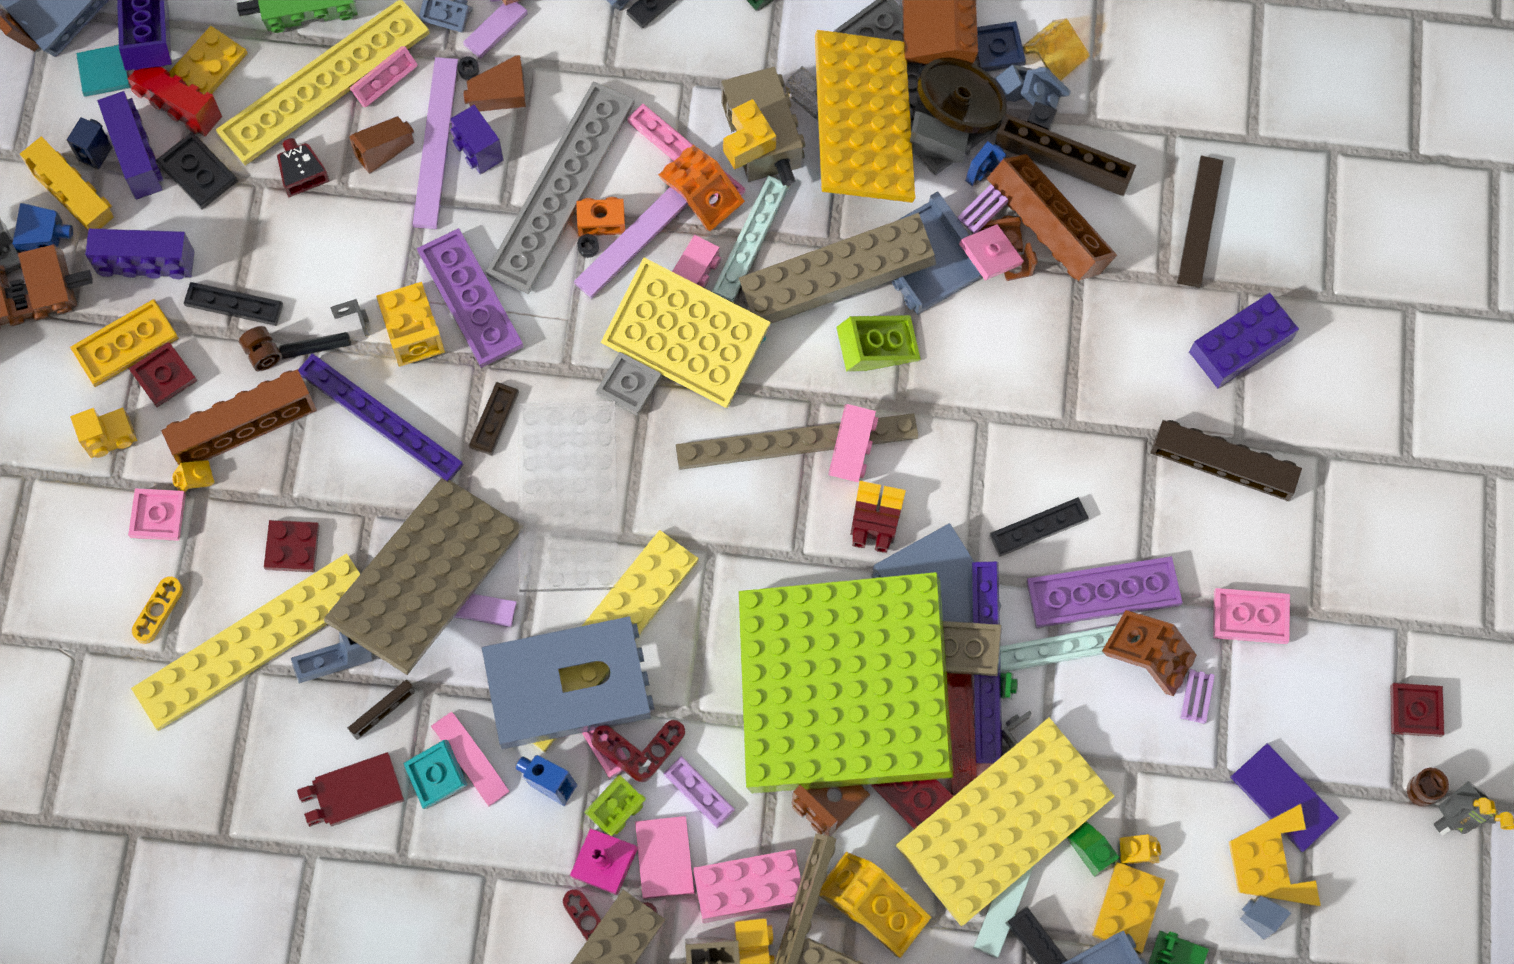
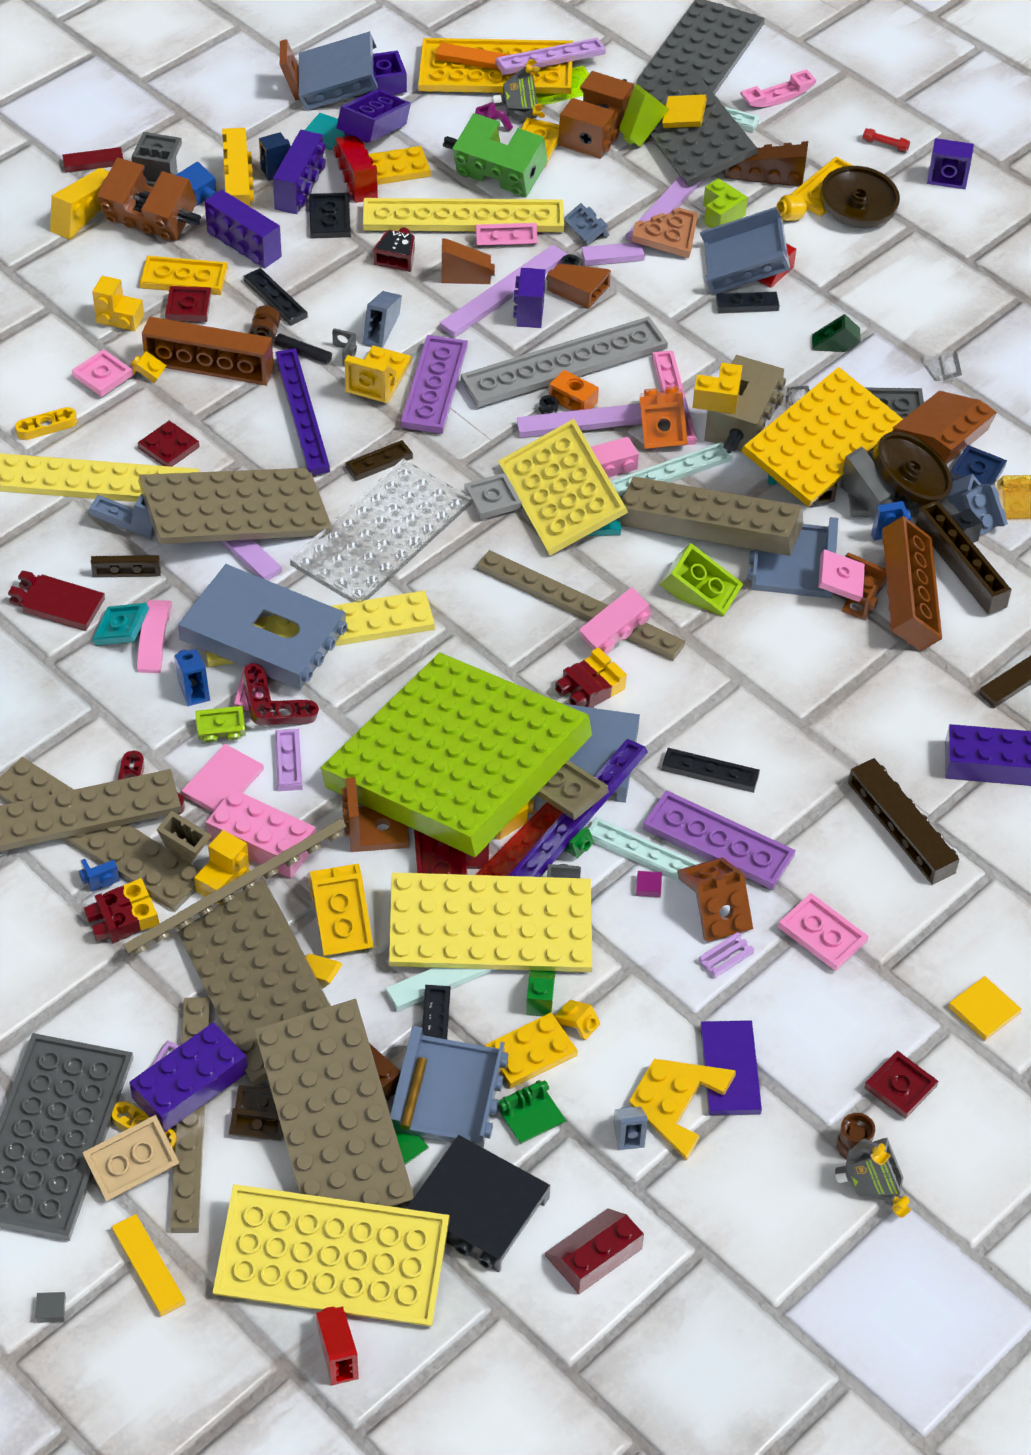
camera: 40 degrees right, 20 degrees down
(359, 260) = (381, 318): none -> sand blue slope
(603, 861) = (178, 750): dark pink tile -> none
(976, 203) = (861, 544): lavender tile -> none
(1085, 677) = (649, 884): none -> magenta tile
(1417, 588) = (984, 1008): none -> yellow tile

